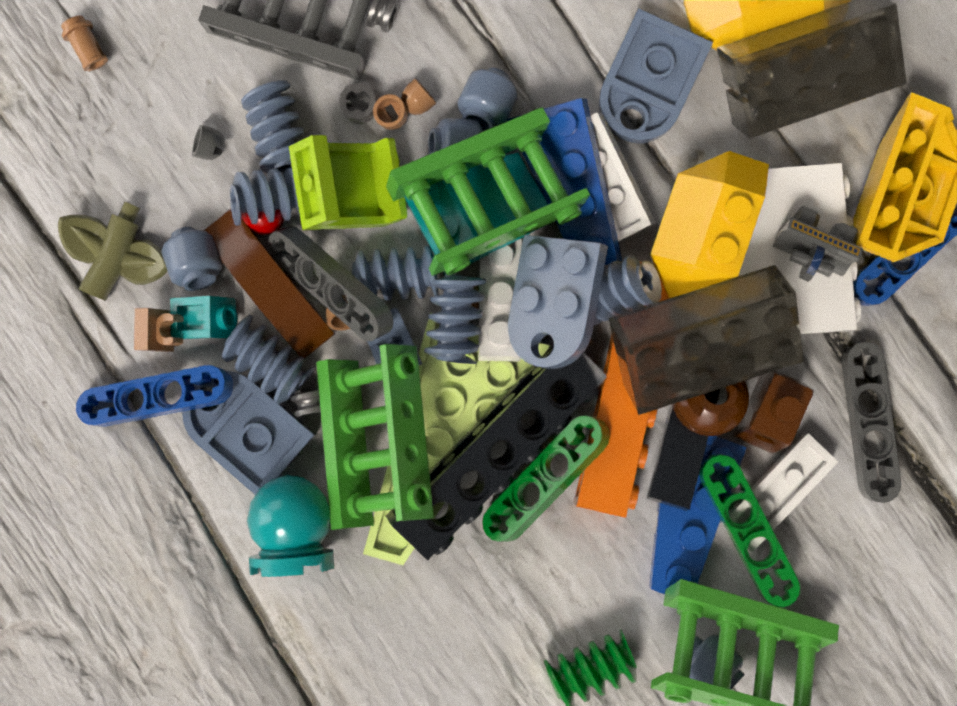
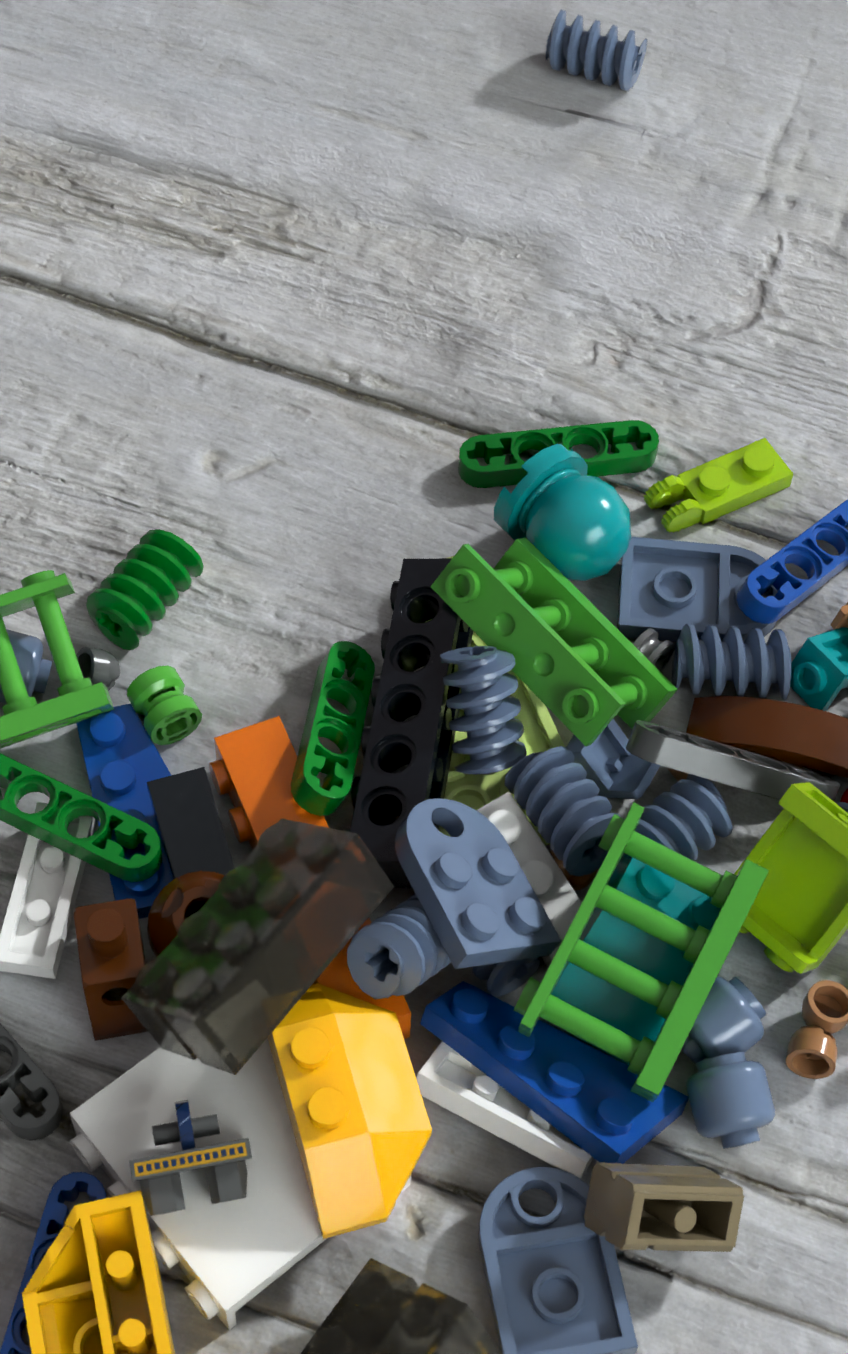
camera: 140 degrees right, 30 degrees down
(156, 500) = (720, 486): none -> lime hinge
(242, 605) = (598, 435): none -> green beam
(458, 414) = (486, 707): none -> sand blue piece
(578, 58) = (663, 1207): none -> dark tan brick
(633, 562) = (166, 709): none -> bright green wheel
(657, 628) = (99, 666): none -> dark grey hinge

